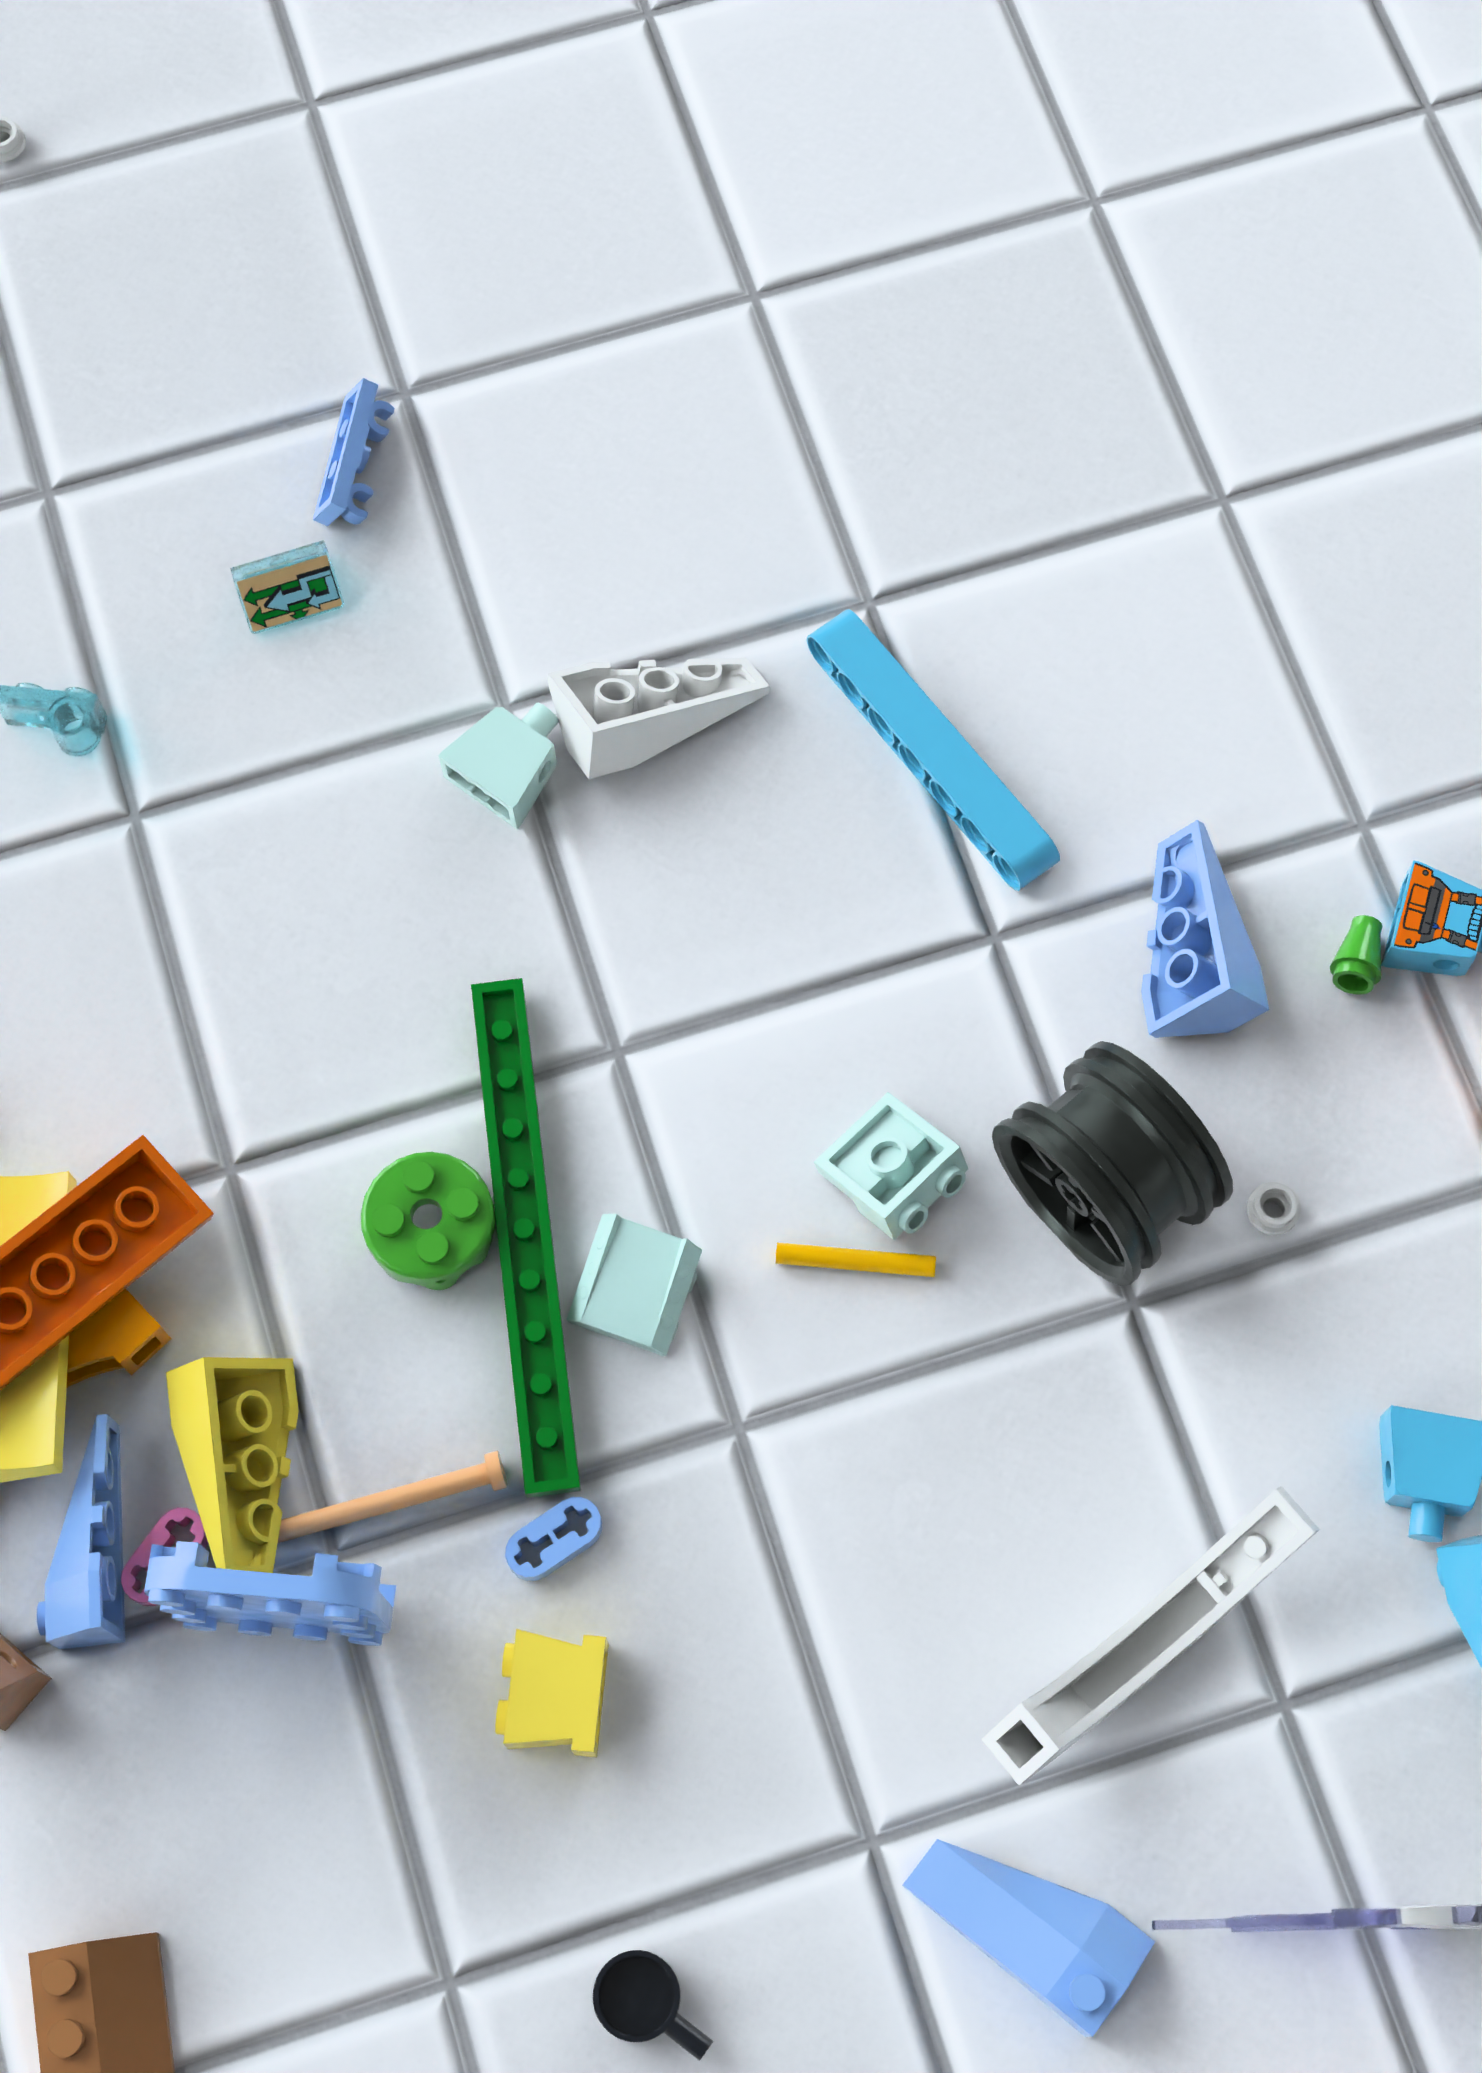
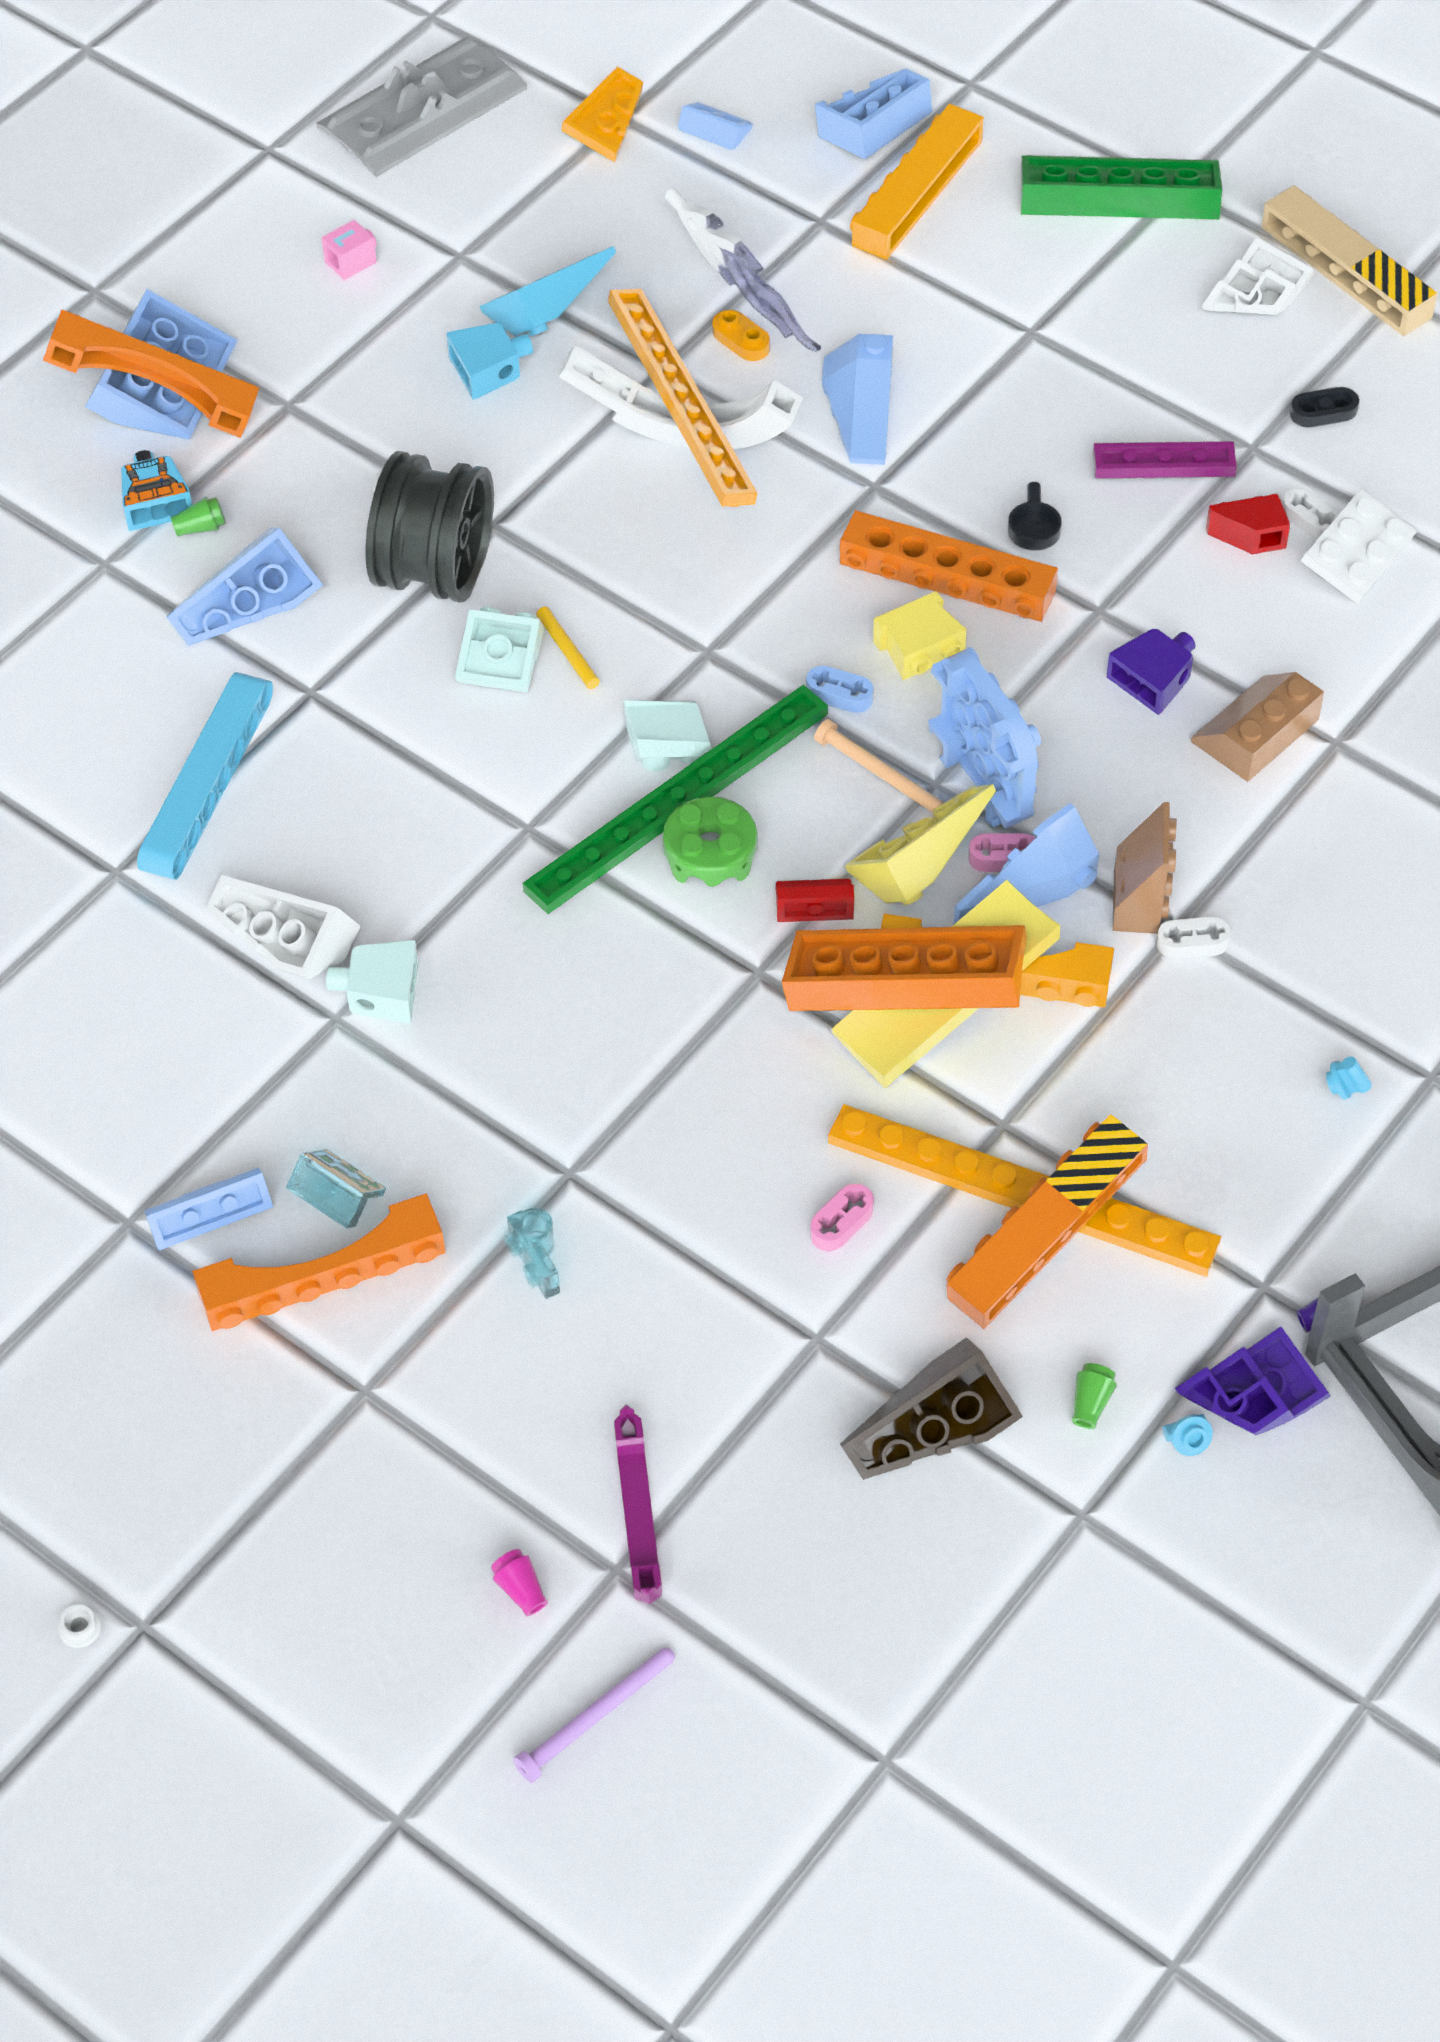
camera: 125 degrees left, 15 degrees down
(231, 426) = (242, 1292): none -> orange arch
(270, 1289) = (814, 900): none -> red panel
(284, 1965) = (1152, 667): none -> dark purple torso
(531, 1916) = (948, 566): none -> orange brick
(1164, 1648) = (682, 398): none -> light orange plate
(1273, 1852) = (741, 335): none -> light orange plate

